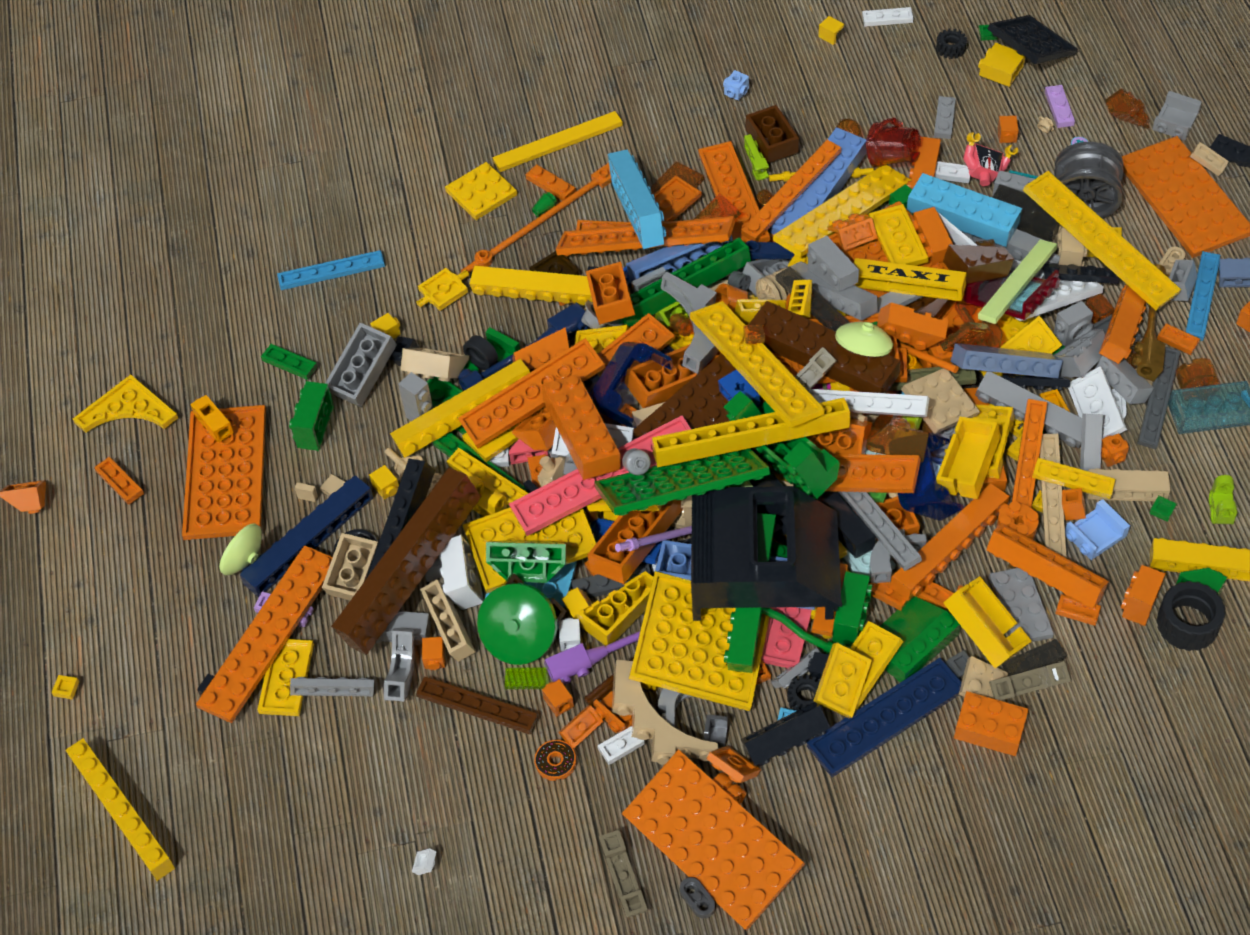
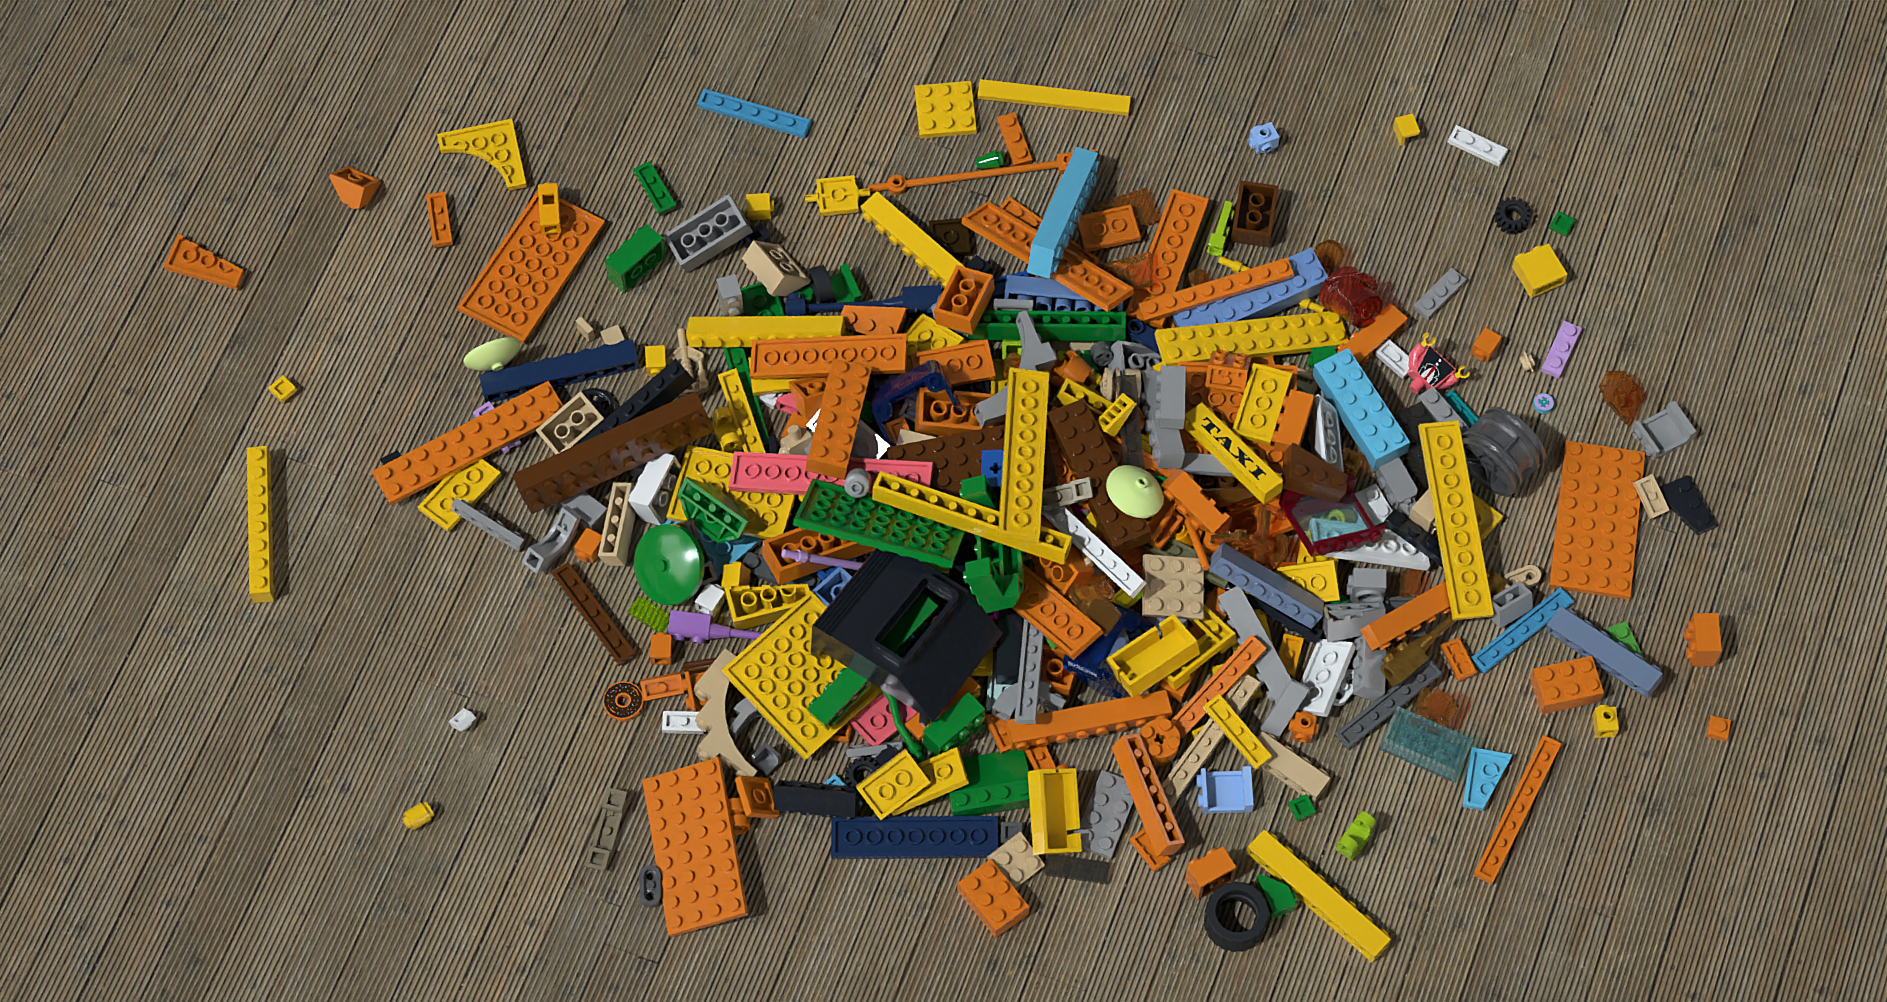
camera: 30 degrees right, 10 degrees up
(754, 334) = (1041, 426): clear orange plate -> none
(1017, 281) = (1343, 513): yellowish green tile -> none
(1029, 681) = (1053, 883): dark tan slope -> none
(1032, 39) = (1590, 261): black plate -> none
(1073, 504) = (1222, 754): orange brick -> none

